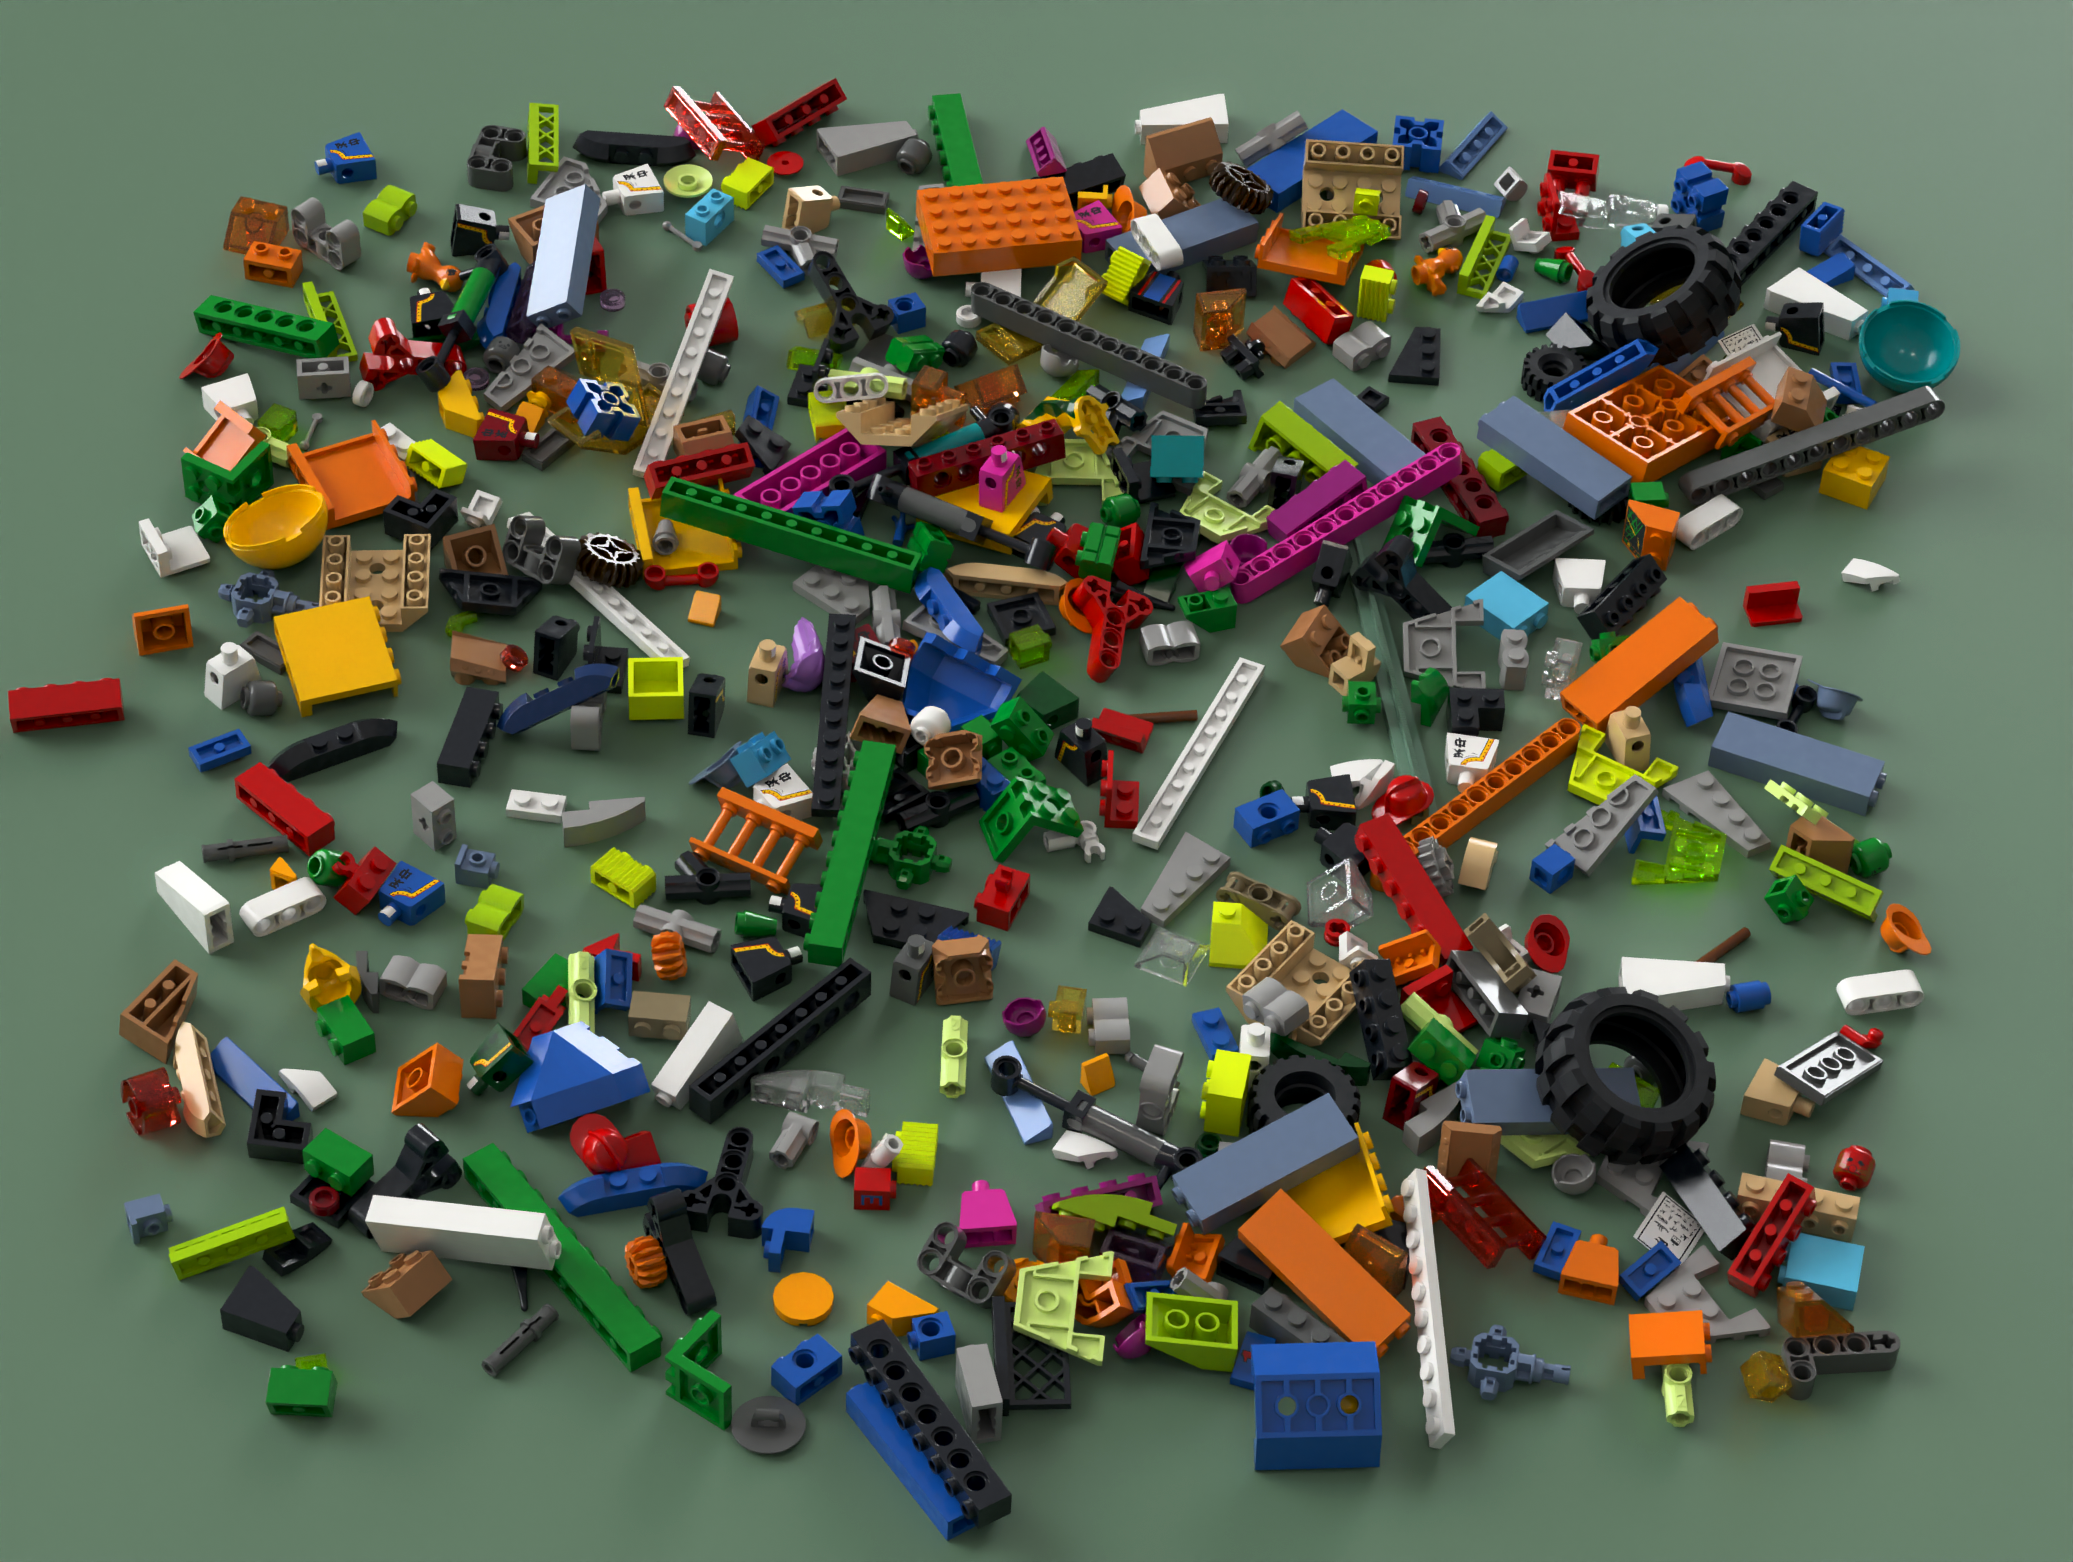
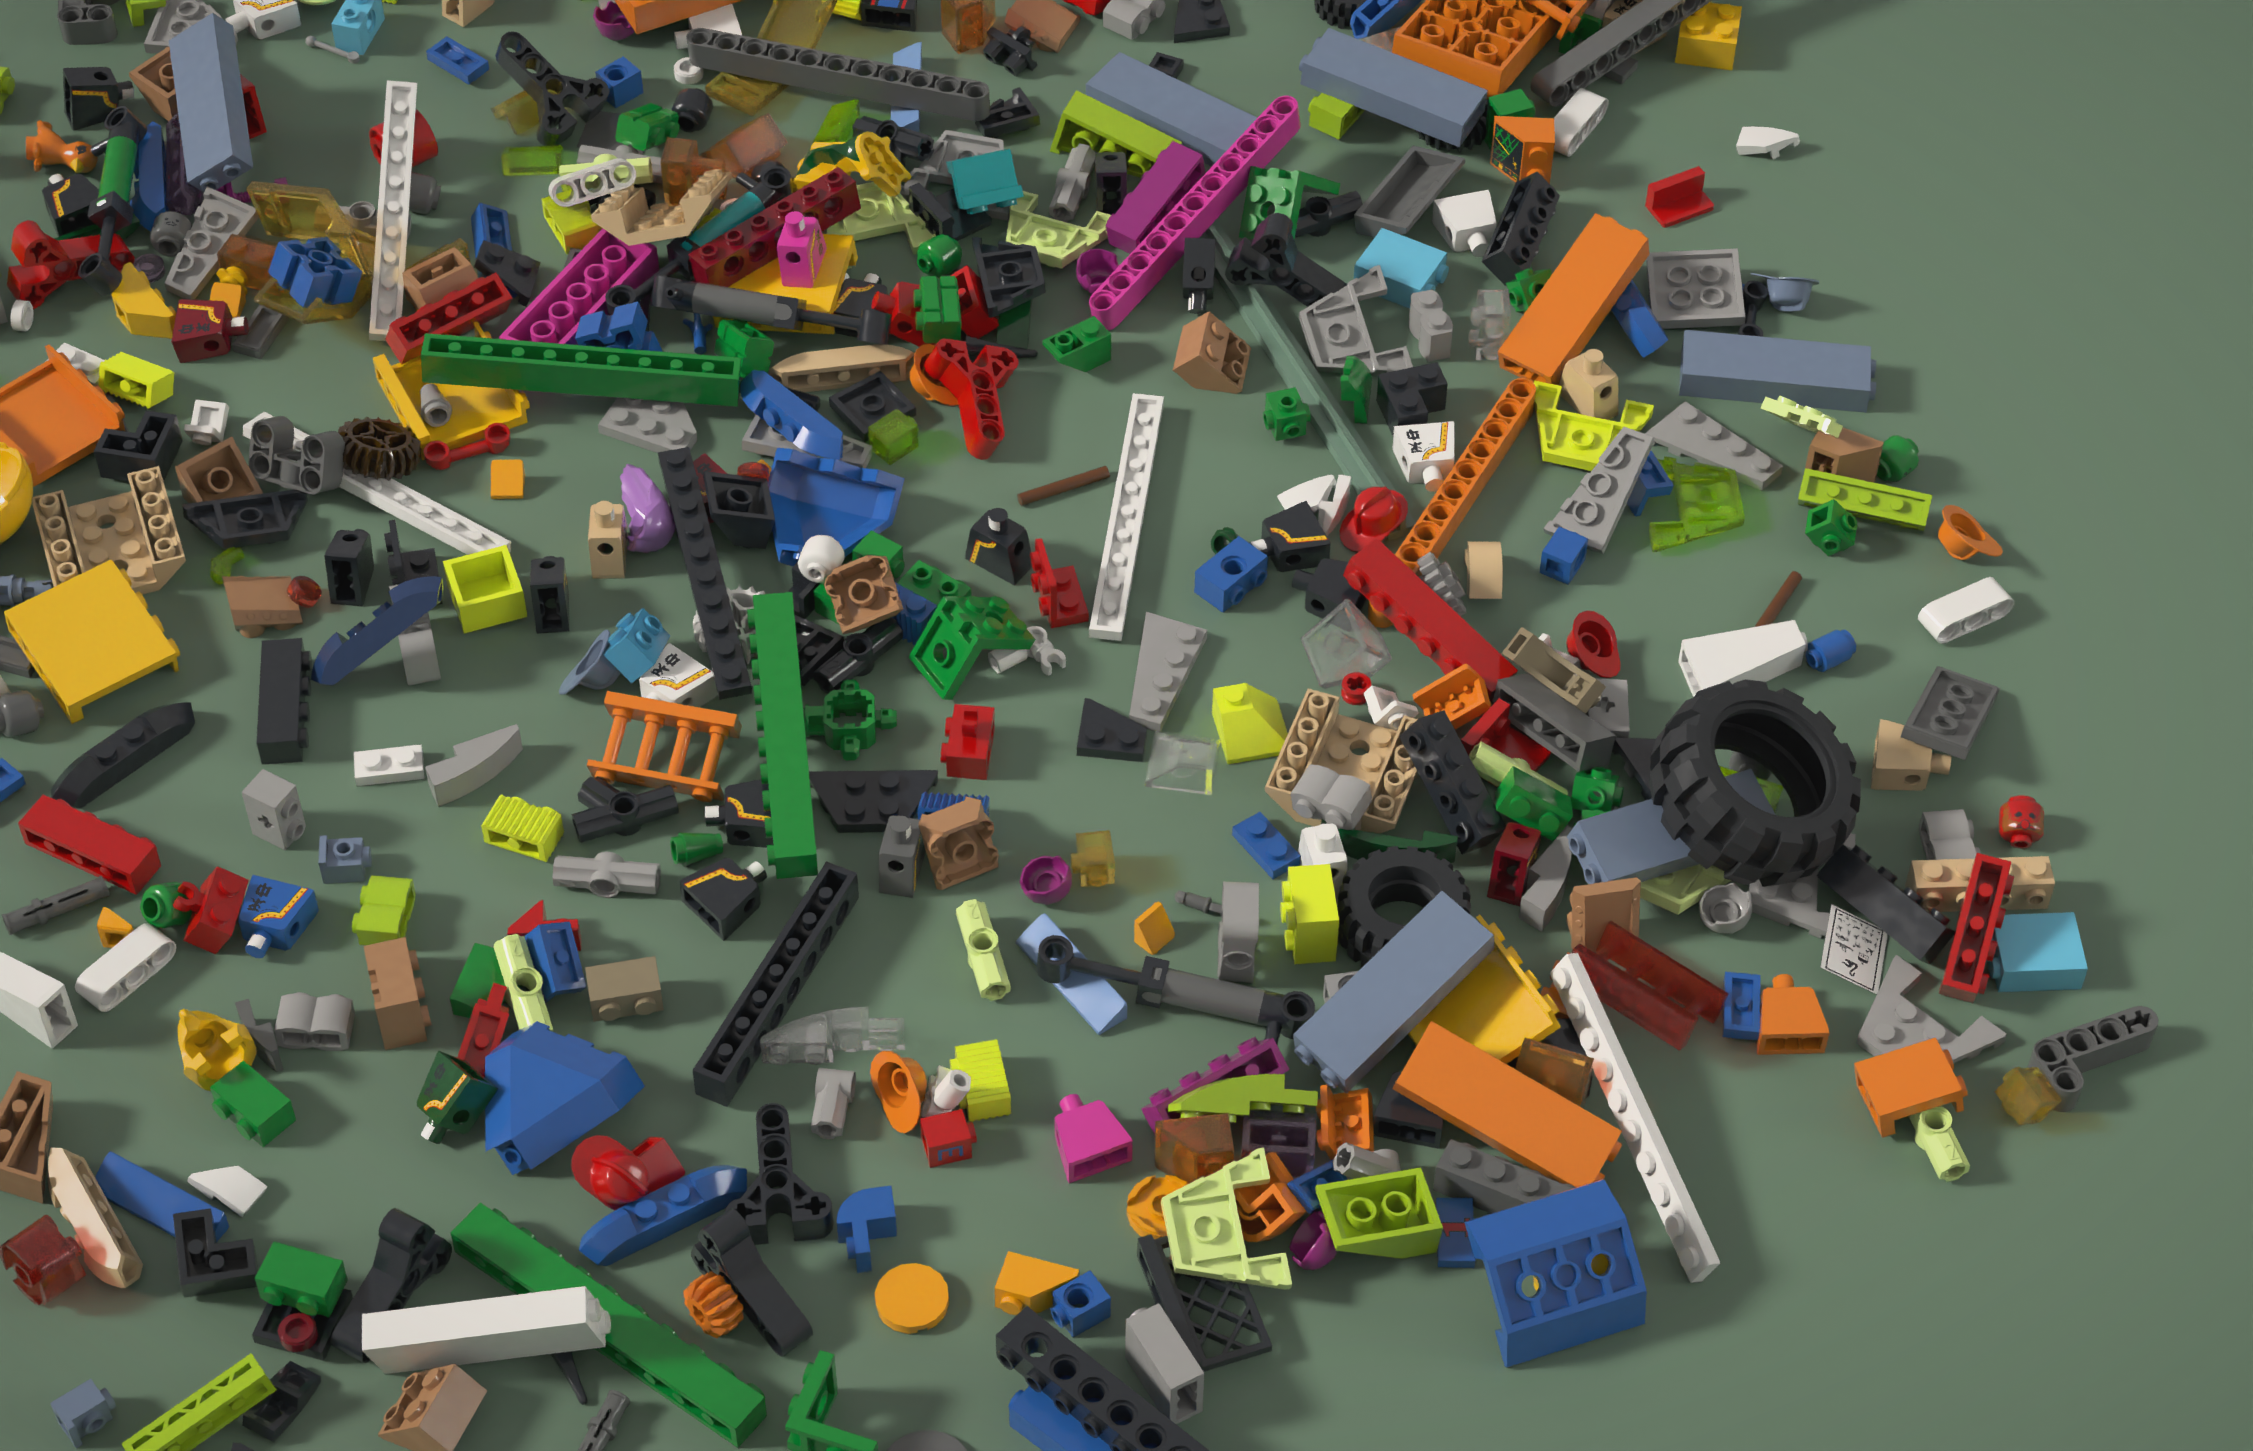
camera: 15 degrees left, 5 degrees up
(428, 1083) = (374, 1146): orange slope -> none
(612, 300) = (277, 140): clear purple tile -> none
(669, 955) = (611, 911): orange gear -> none
(703, 1046) = (685, 1029): white slope -> none
(800, 243) = (472, 29): light grey piece -> none
(806, 1369) = (945, 1408): blue brick -> none
(808, 376) = (535, 181): black bracket -> none
(883, 722) = (765, 568): medium nougat slope -> none
(885, 615) = (718, 439): light grey piece -> none
(959, 1277) = (1087, 1222): dark grey beam -> none
(1022, 728) = (923, 536): green brick -> none
(1050, 700) = (936, 501): dark green torso -> none
(1057, 363) = (808, 102): light grey hair -> none
(1081, 1147) = (1168, 1023): white slope -> none
(1110, 1025) = (1146, 866): light grey brick -> none
(1123, 730) = (1035, 508): red panel -> none
(1169, 643) = (1048, 395): light grey brick -> none
(1208, 1144) = (1309, 974): dark green plate -> none
(1211, 569) = (1069, 298): dark pink torso -> none
(1260, 899) = (1259, 670): dark tan piece -> none
(1357, 666) = (1265, 374): tan brick -> none
(1469, 489) = (1311, 147): dark red brick -> none
(1520, 1366) = (1755, 1157): sand blue piece -> none
(1649, 1271) = (1851, 1002): blue plate -> none
(1806, 1313) = (2045, 1009): clear orange slope -> none
(1868, 1041) = (1972, 669): red arm -> none

